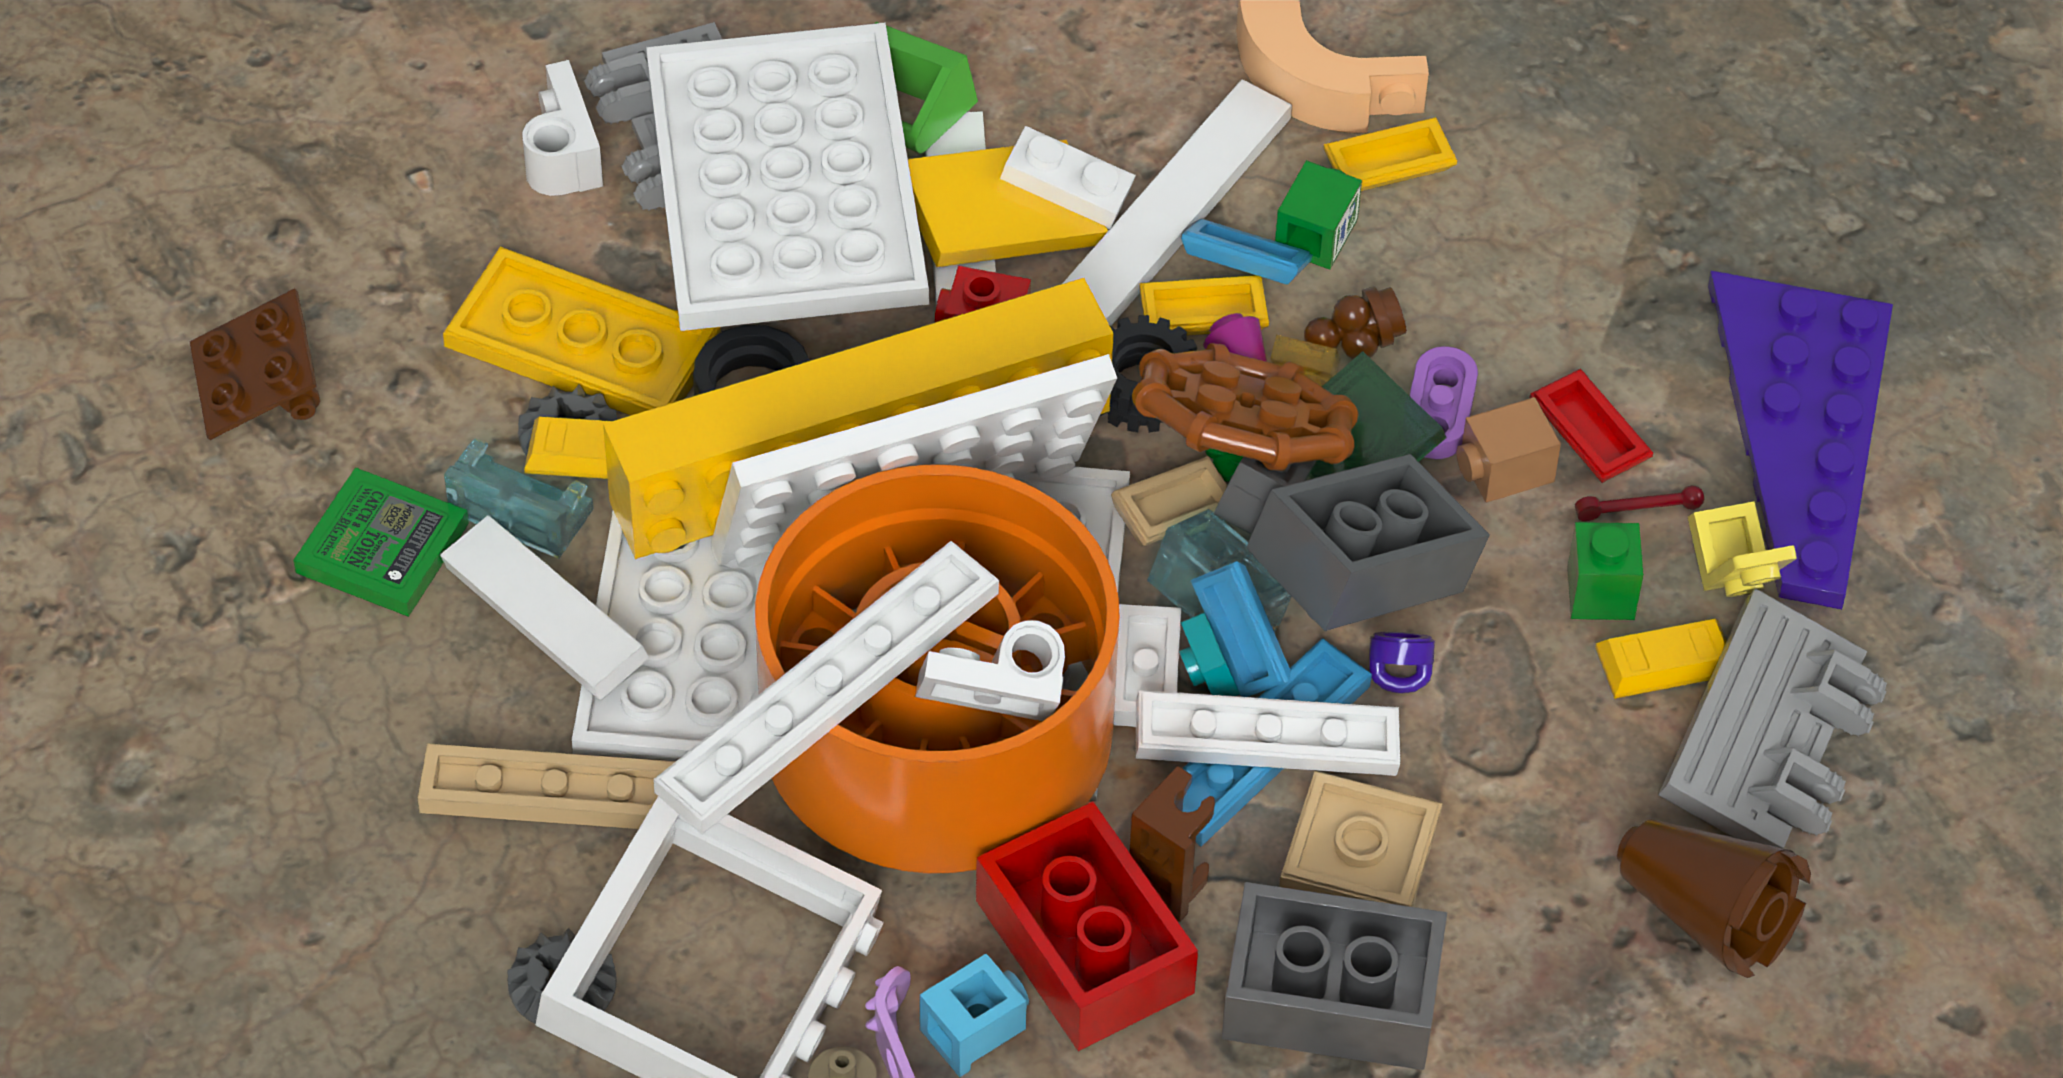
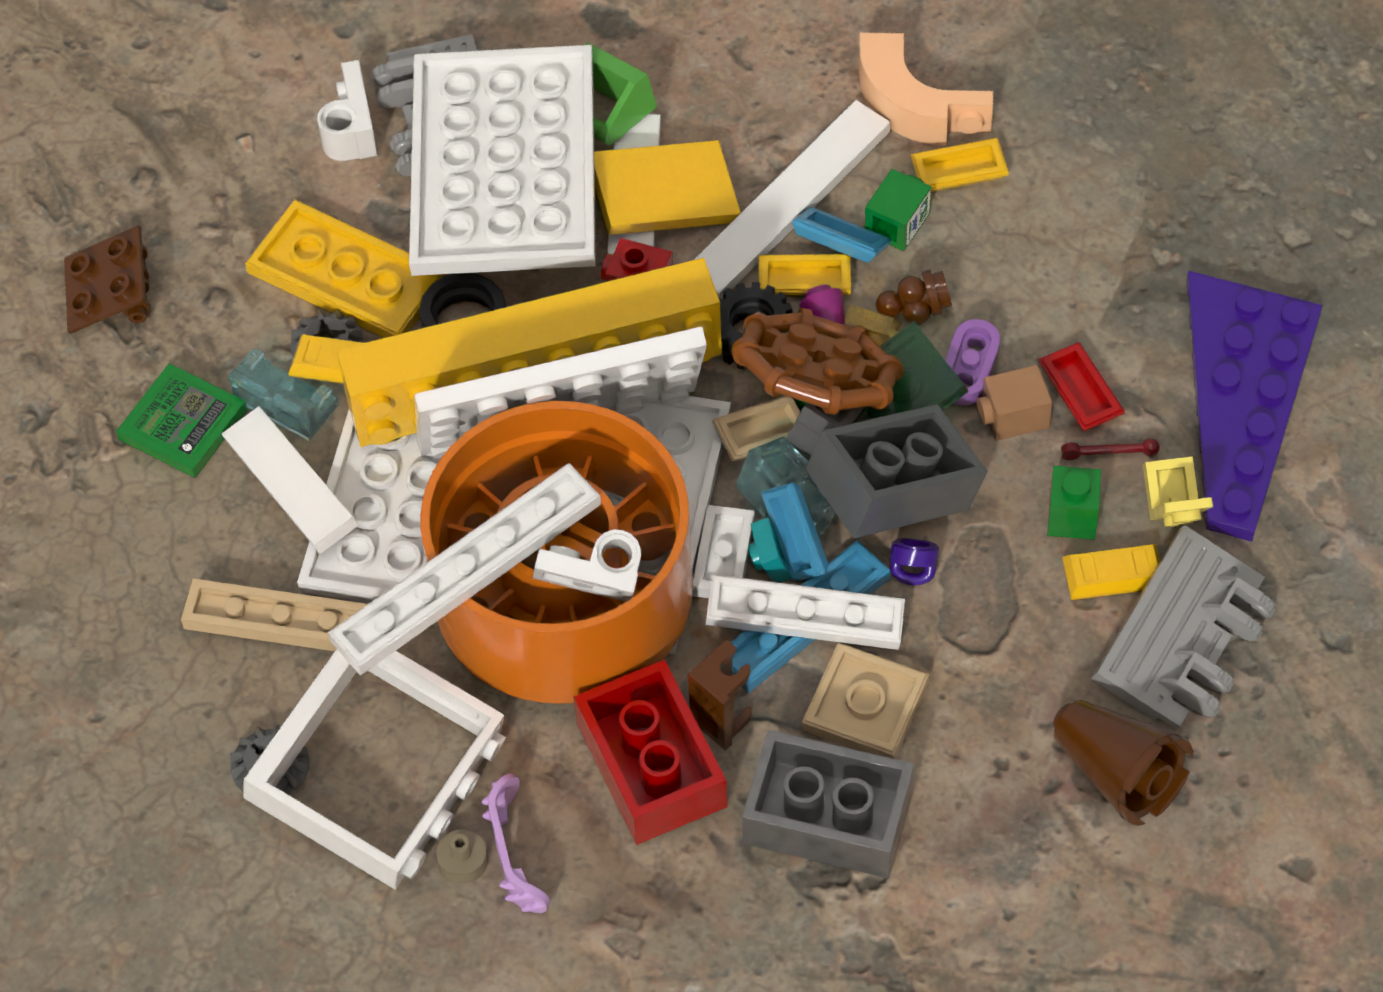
camera: 10 degrees right, 5 degrees up
(976, 992) = (558, 797): medium azure brick -> none
(1067, 177) = (714, 170): white plate -> none

